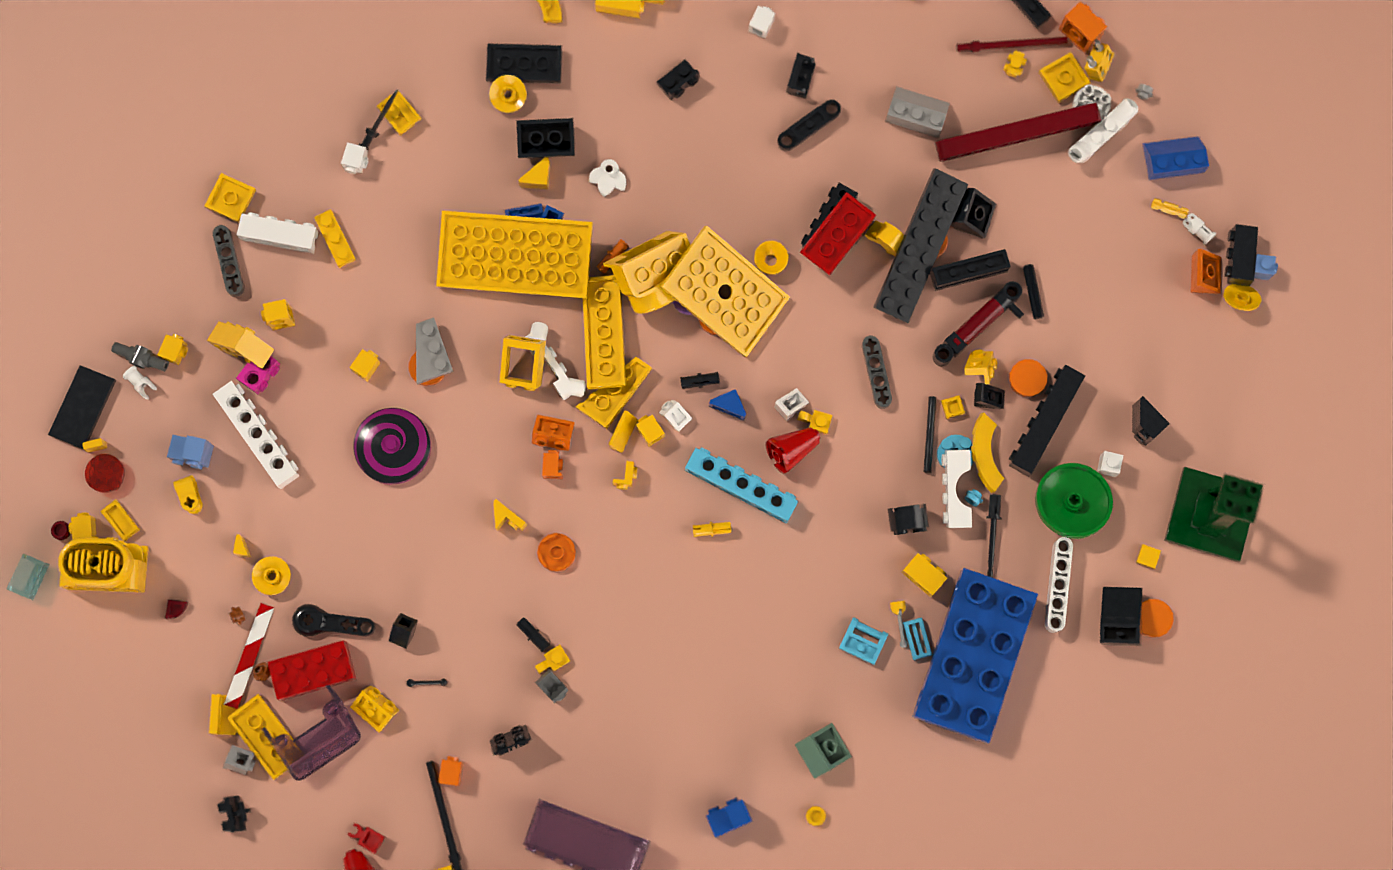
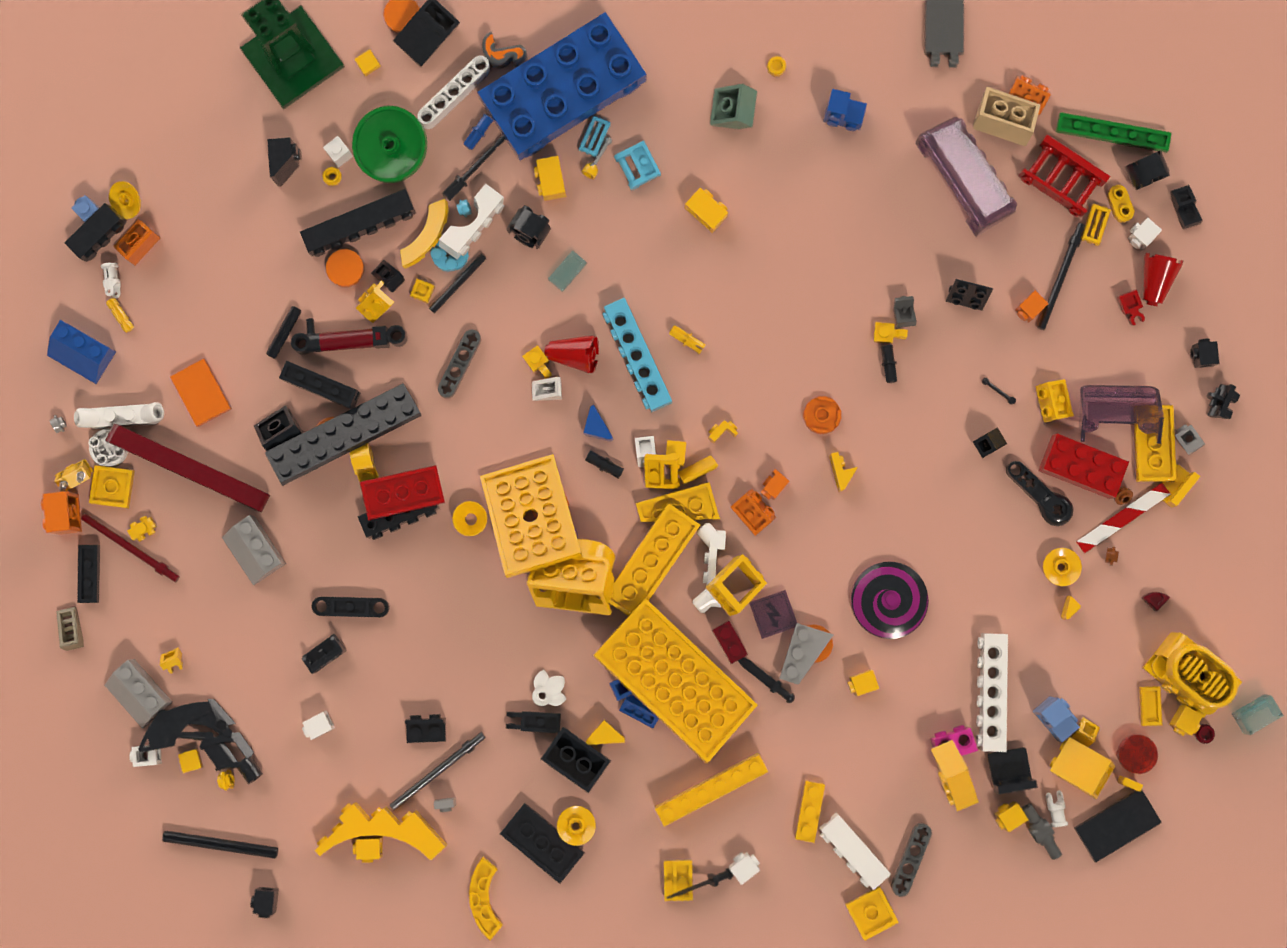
camera: 140 degrees left, 5 degrees up
(141, 428) = (1082, 767): none -> yellow slope
(158, 460) = (1086, 733): none -> yellow slope
(187, 491) = (1081, 686): yellow piece -> none
(196, 383) = (1011, 771): none -> black bracket
(277, 844) = (1205, 353): none -> black brick
(278, 314) = (905, 778): yellow brick -> none
(424, 196) = (711, 789): none -> yellow brick
(434, 311) = (775, 686): none -> black sword
(476, 365) = (773, 614): none -> tile
(494, 316) = (730, 642): none -> dark red brick
(599, 146) = (536, 721): none -> black hinge
(618, 249) = (595, 620): orange axle -> none
(620, 36) = (445, 804): none -> light grey plate
(636, 89) = (467, 747): none -> black bar
(654, 402) = (655, 471): none -> yellow plate
(778, 645) = (706, 209): none -> yellow brick
(851, 511) = (567, 271): none -> clear light blue tile
(1013, 567) = (478, 132): none -> blue axle
(1043, 645) = (504, 56): none -> dark grey animal
(1057, 197) = (200, 392): none -> orange tile
(1099, 436) = (329, 171): none -> yellow plate

